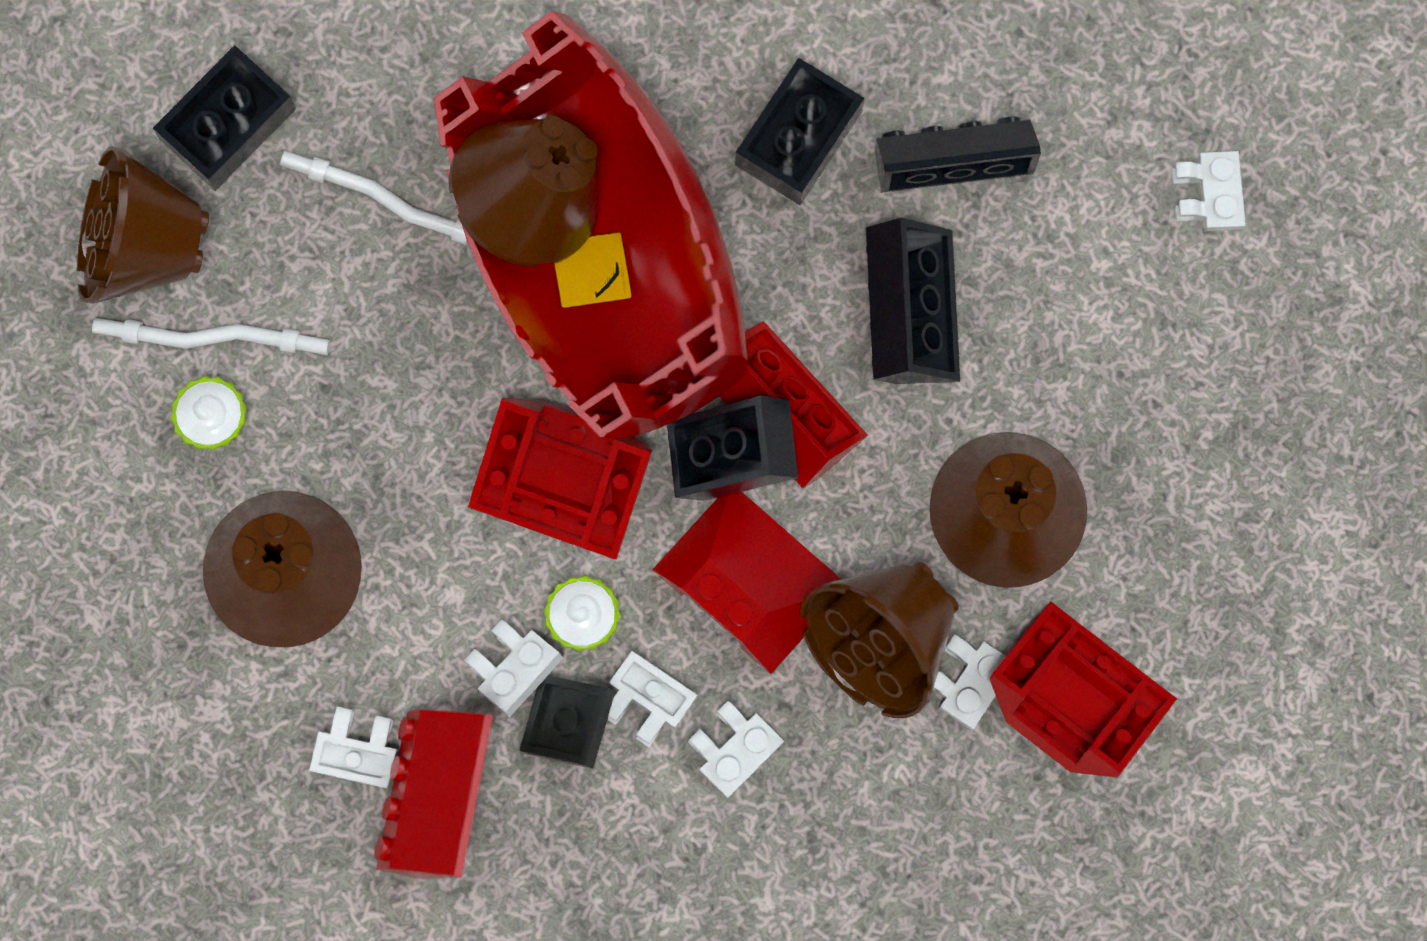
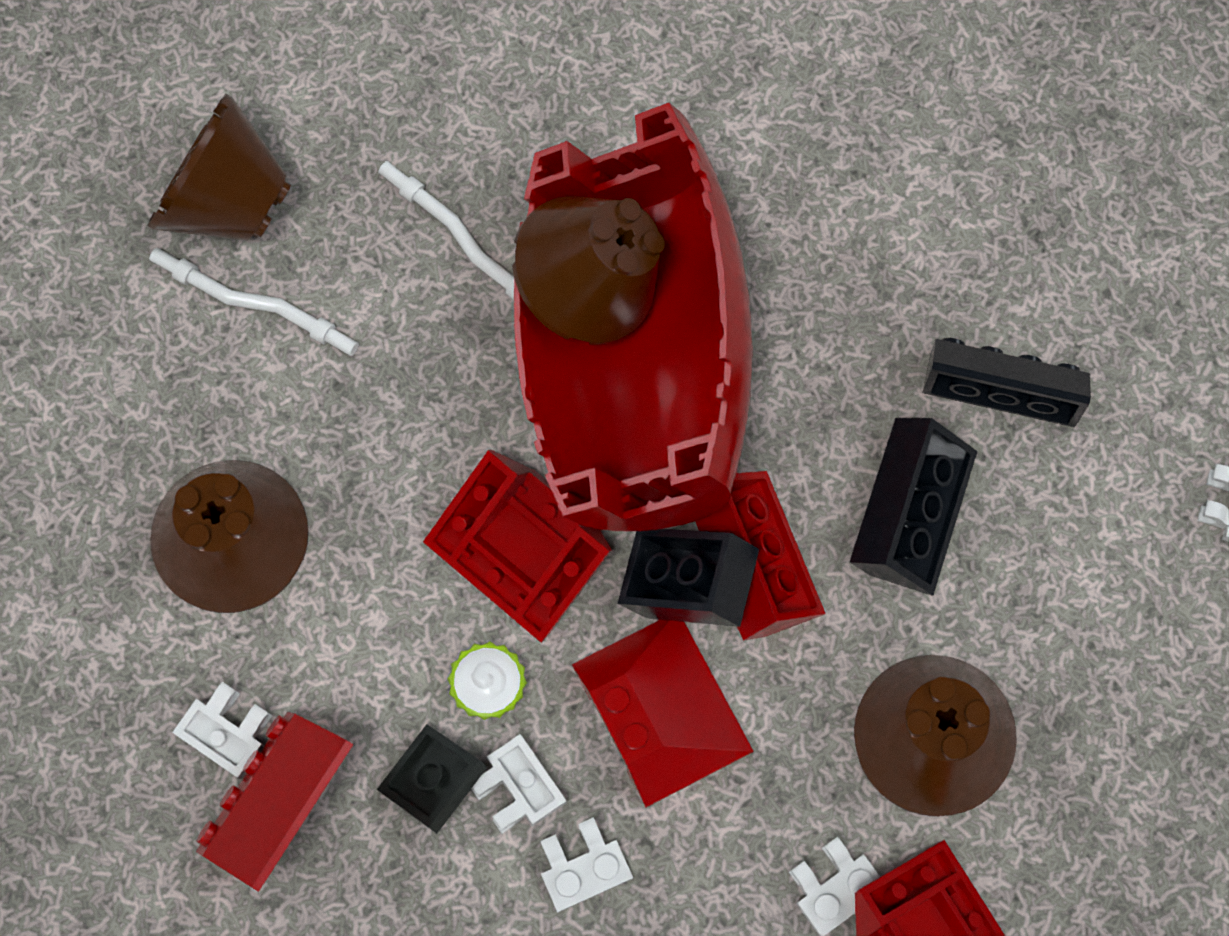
camera: 25 degrees right, 5 degrees down
(208, 413) = (219, 367): white piece -> none
(224, 118) = (344, 111): black brick -> none
(519, 672) = (406, 714): white plate -> none
(594, 272) = (624, 368): yellow sticker -> none
(799, 131) = (865, 307): black brick -> none
(882, 635) = (766, 810): reddish brown cone -> none

